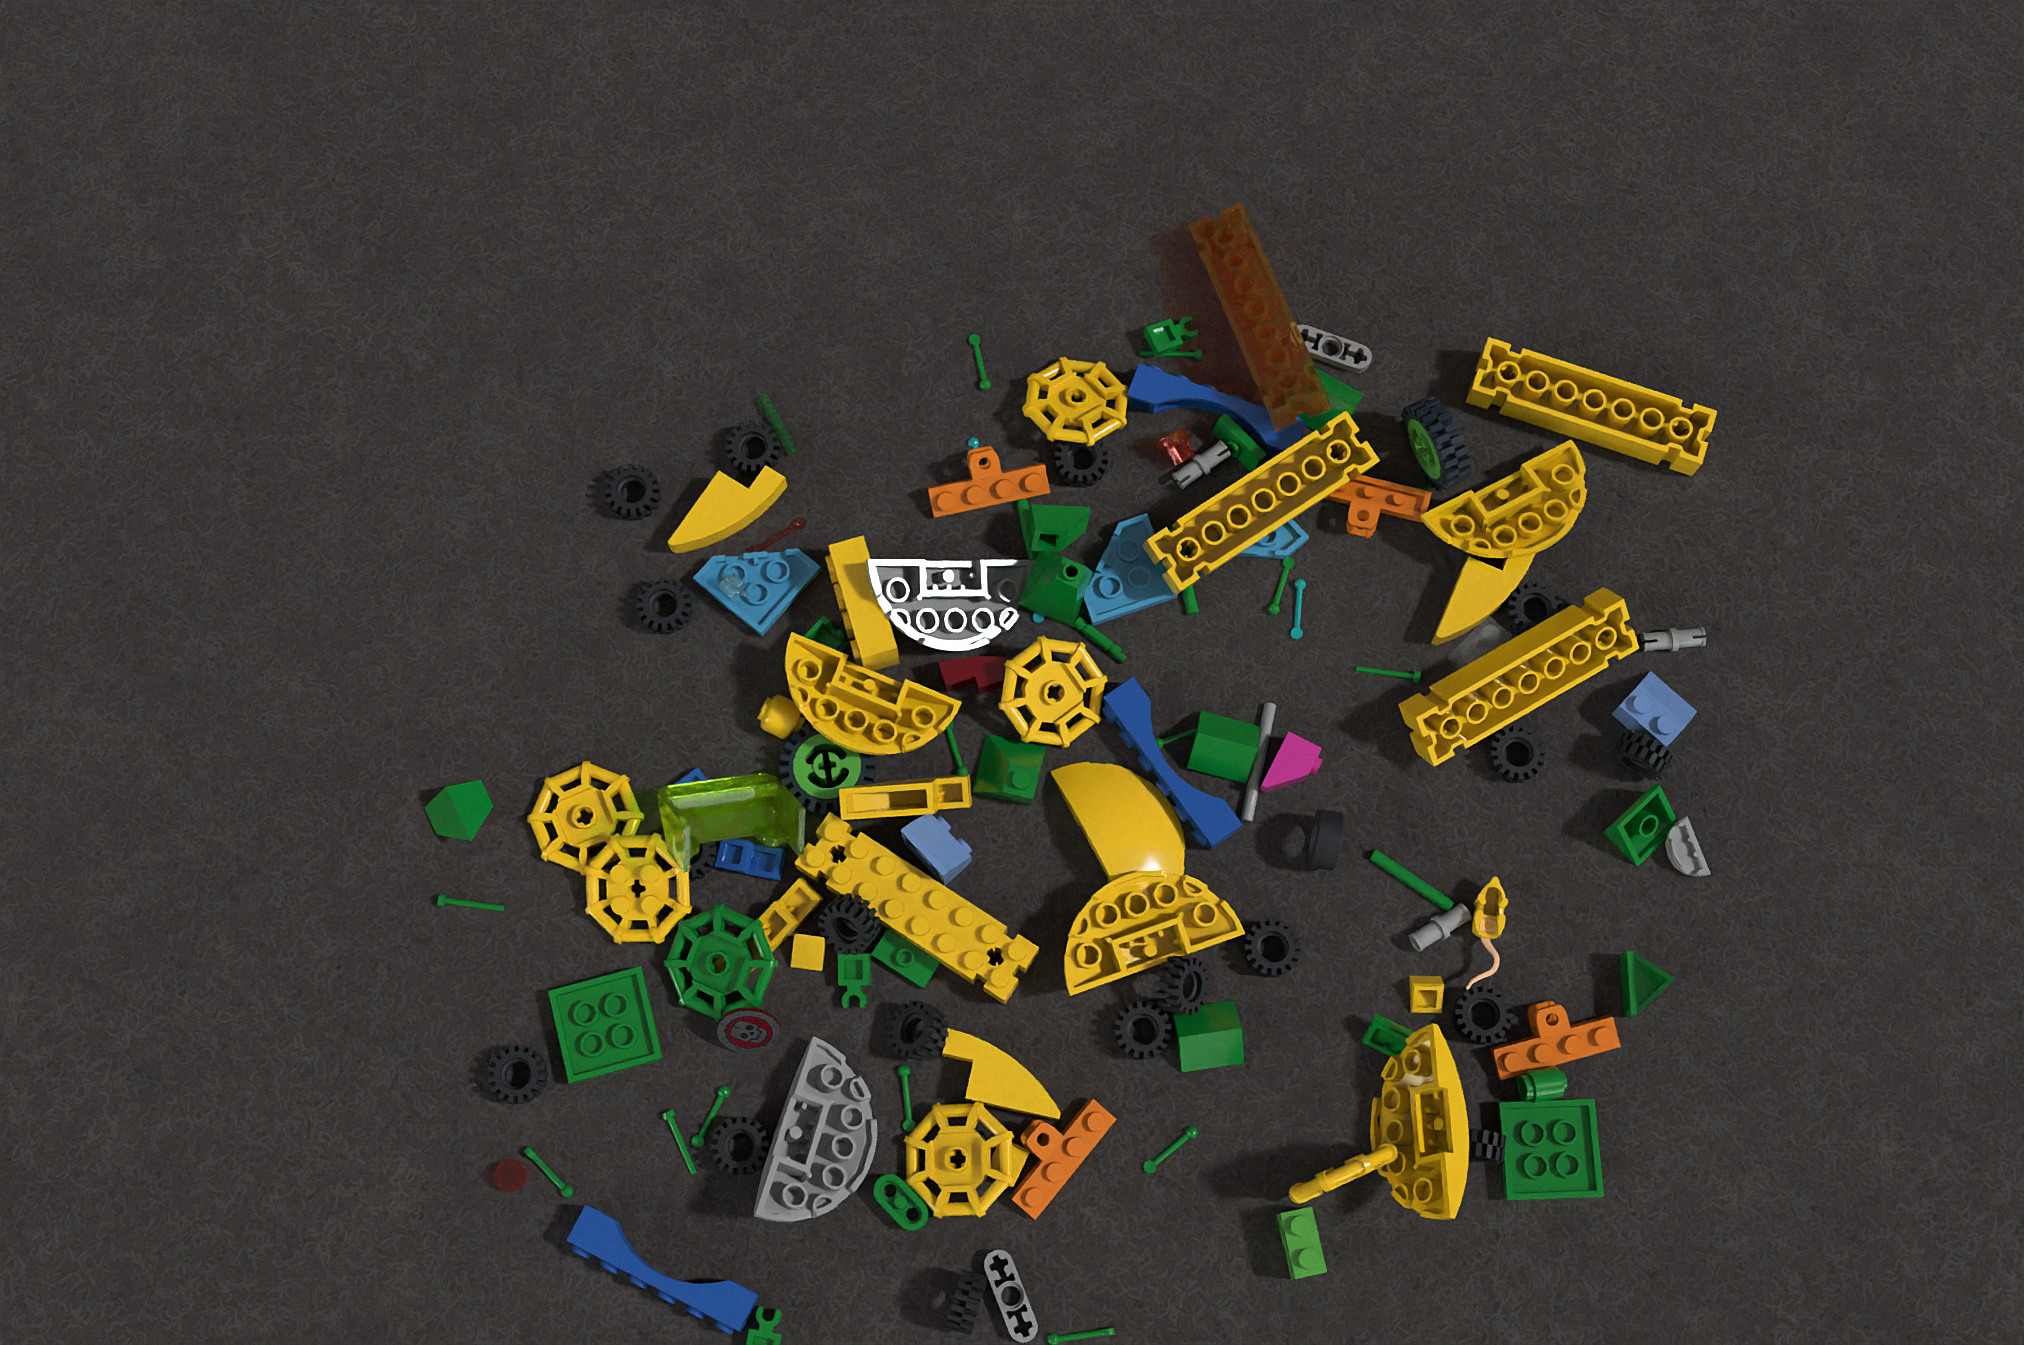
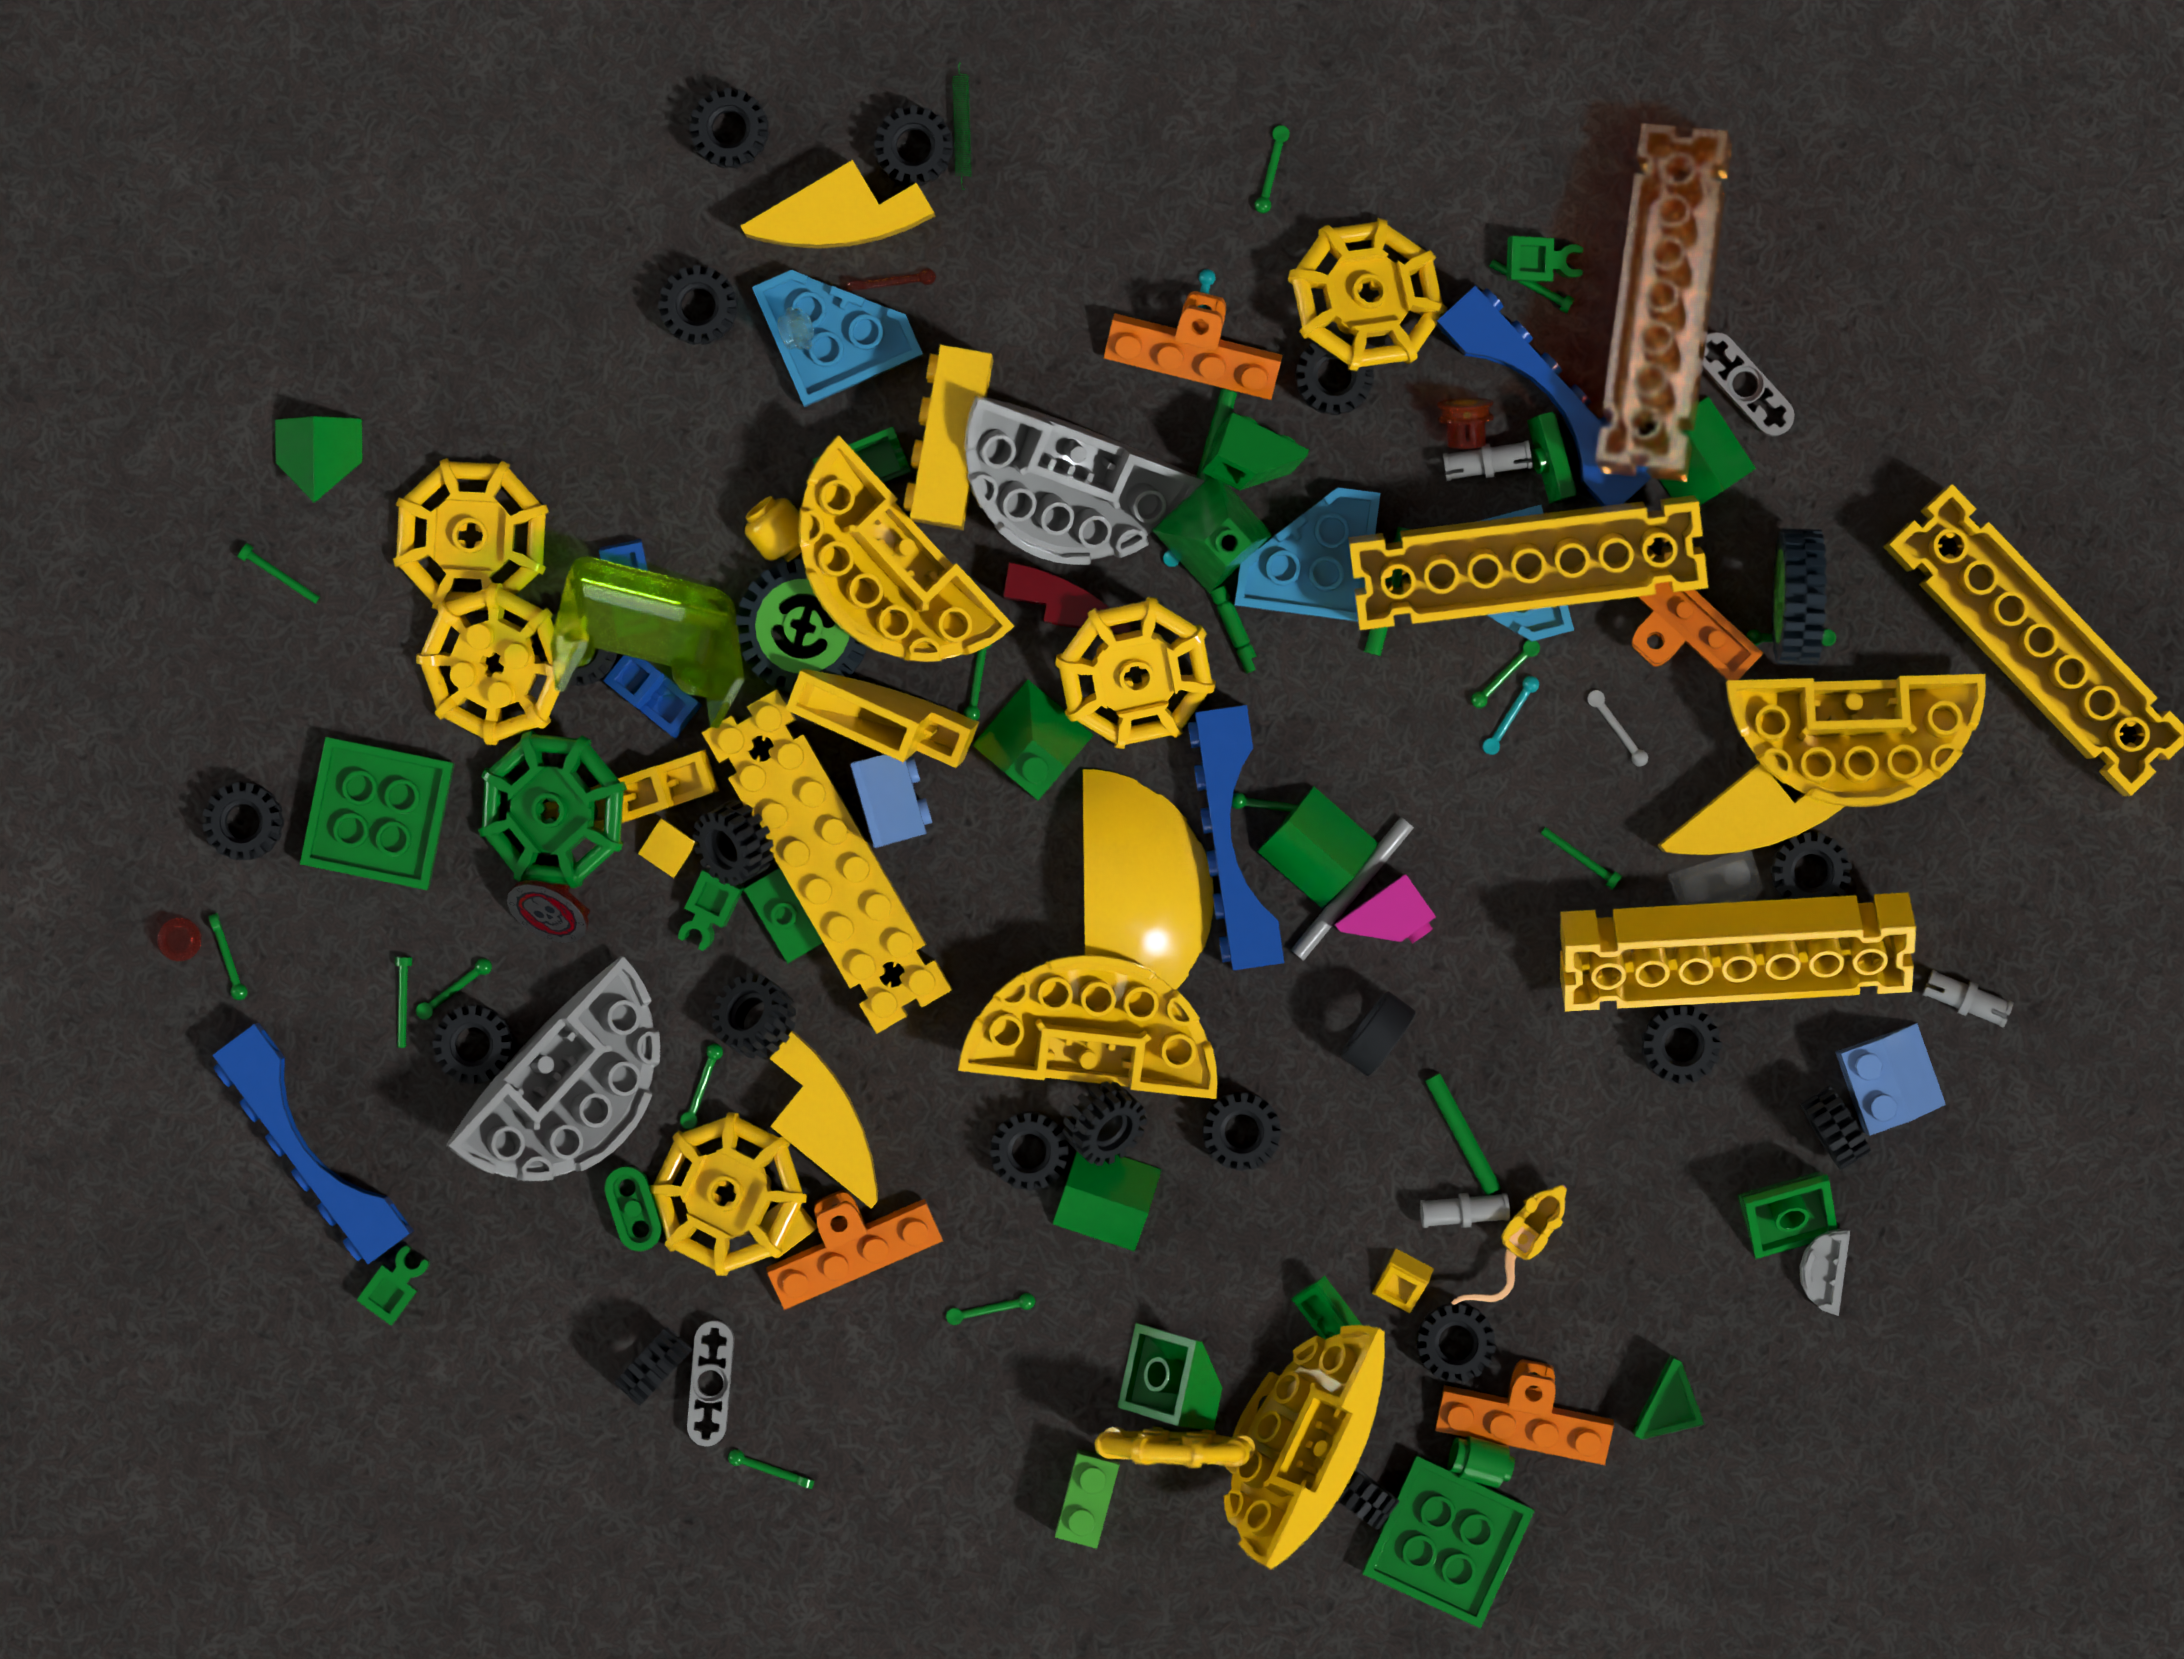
camera: 30 degrees right, 15 degrees up
(1312, 1133) = (1170, 1379): none -> green slope
(1345, 574) = (1596, 699): none -> light grey hinge

